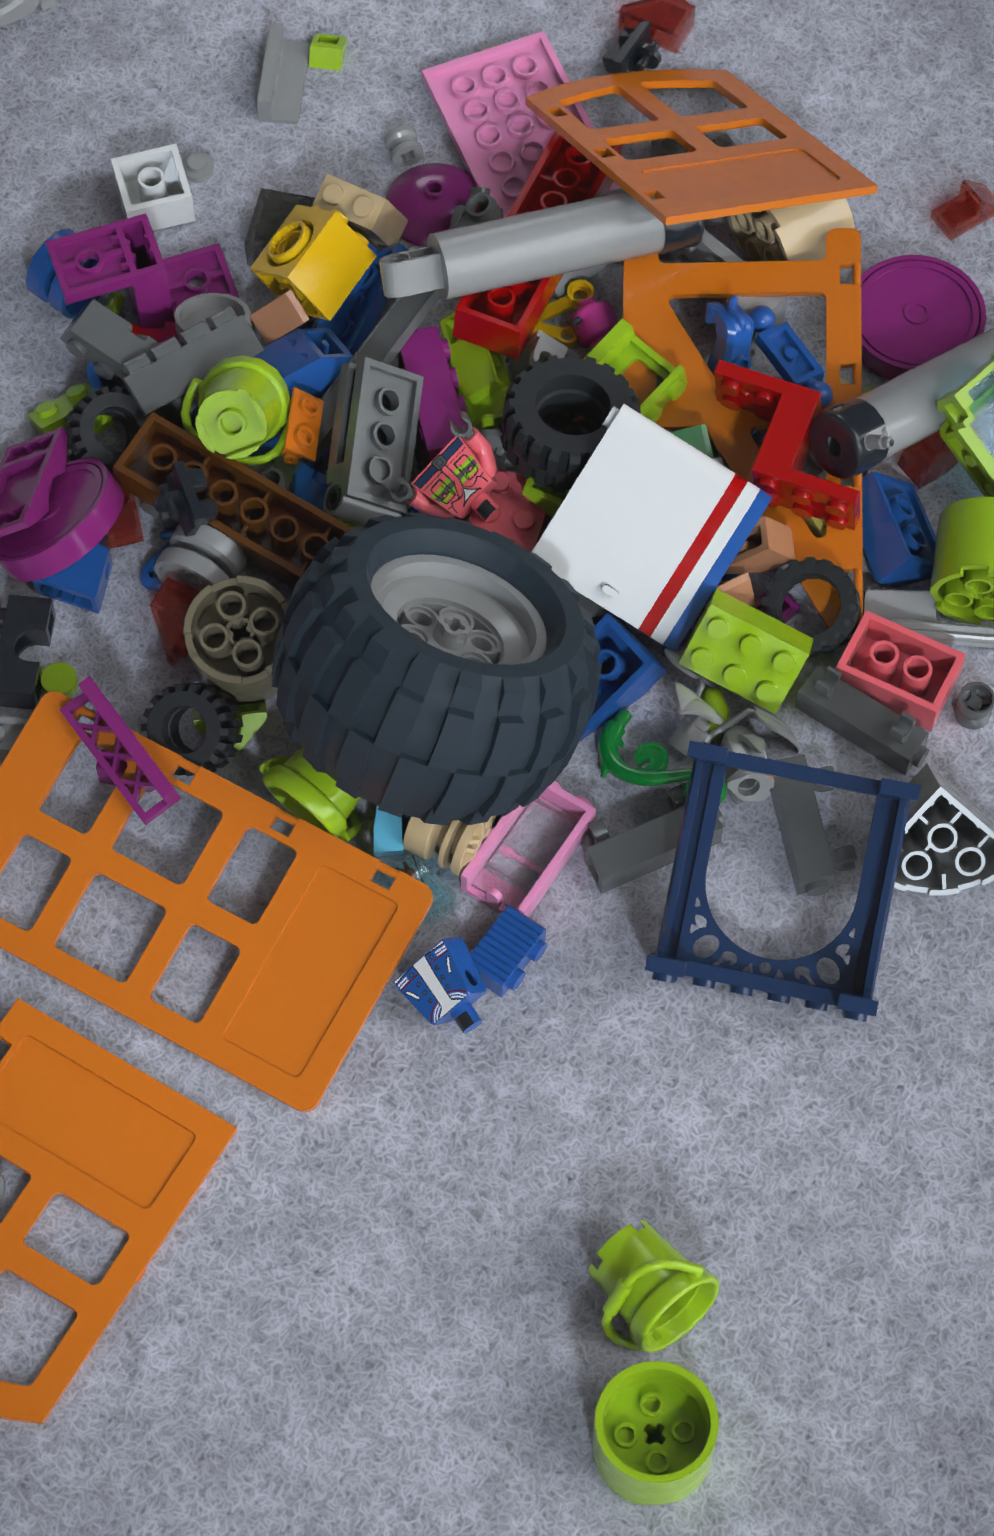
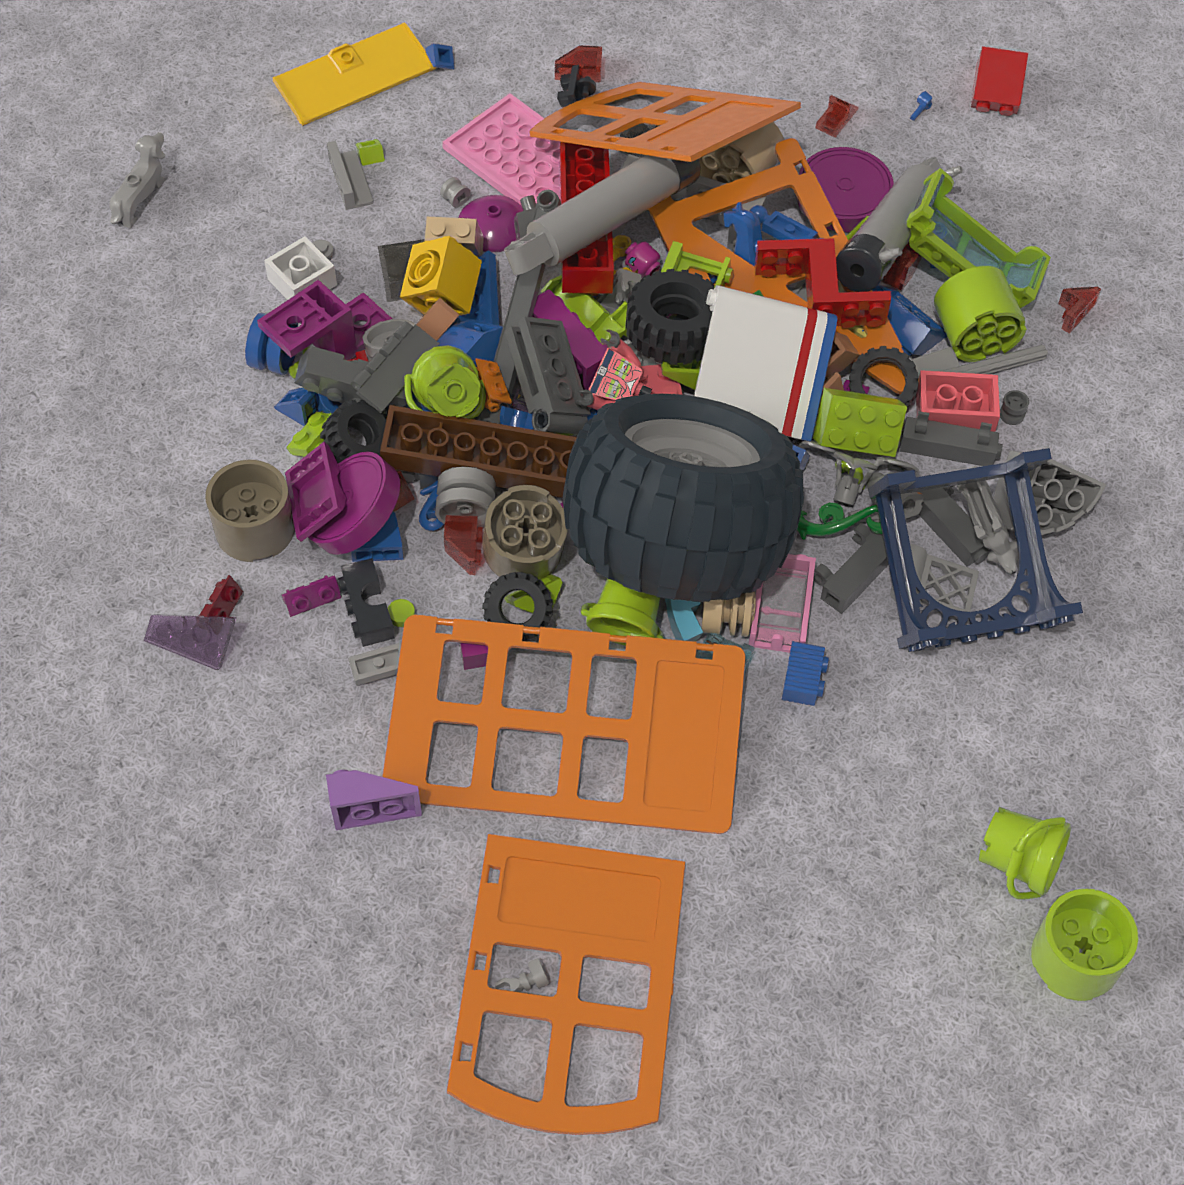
camera: 25 degrees left, 5 degrees down
(65, 367) = (299, 405): none -> blue slope
(124, 738) = (489, 629): magenta fence -> none
(180, 498) = (442, 453): black hips -> none
(444, 985) = (779, 709): blue torso -> none
(724, 872) = (922, 565): none -> light grey piece
(838, 849) = (990, 525): none -> light grey animal

